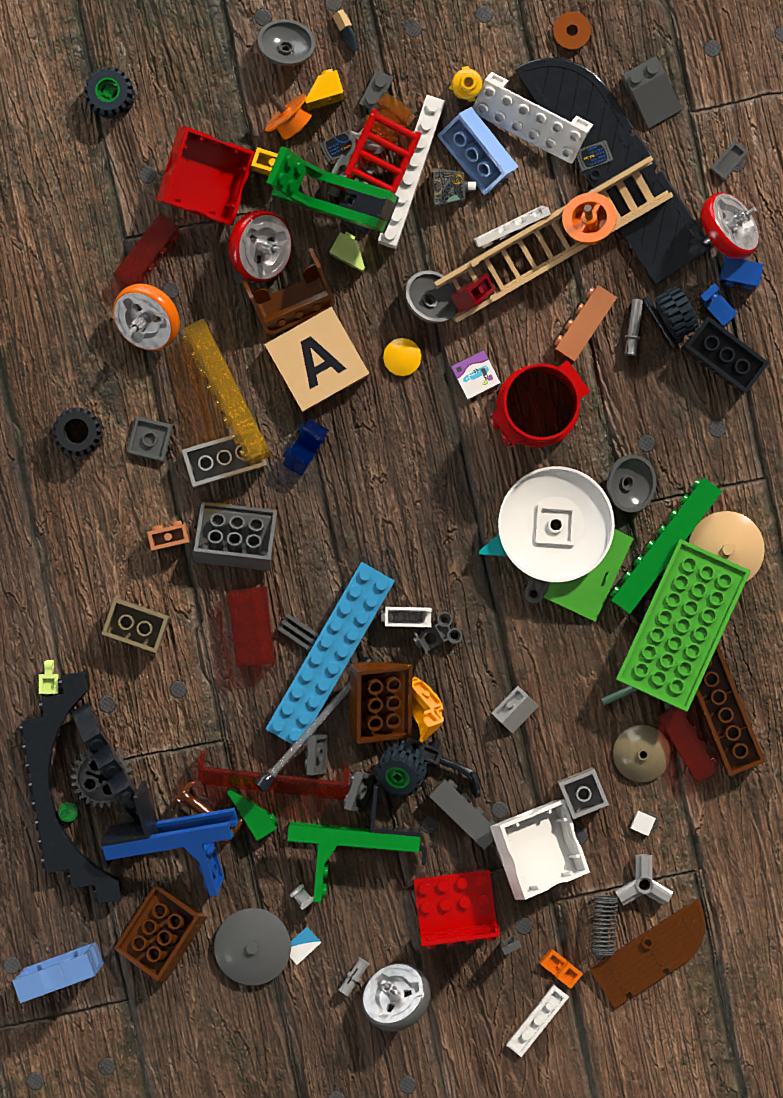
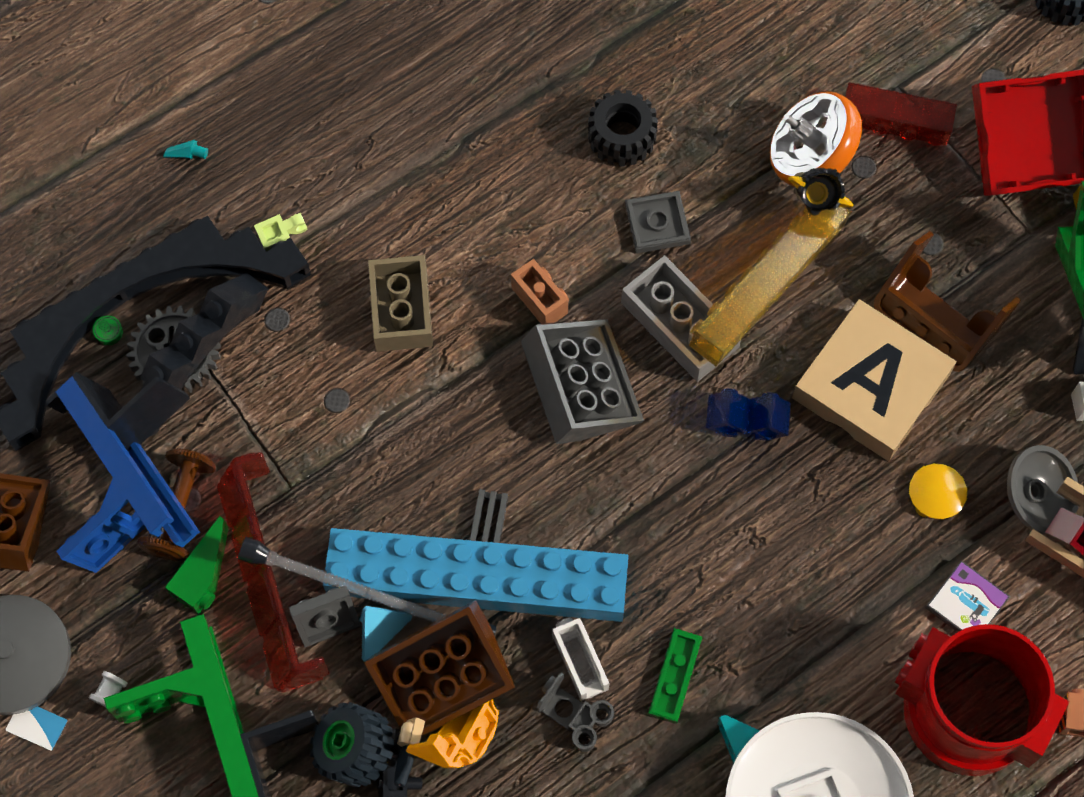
camera: 65 degrees right, 20 degrees down
(185, 334) = (820, 190): none -> black hair
(244, 250) = (986, 262): flat silver wheel -> none
(251, 626) = (467, 452): clear red brick -> none
(336, 725) = (379, 628): none -> medium azure piece
(348, 251) = (1039, 355): yellowish green slope -> none
(359, 791) = (294, 696): dark grey hinge -> none
(413, 736) = (409, 734): none -> piece
(441, 565) = (675, 676): none -> green tile

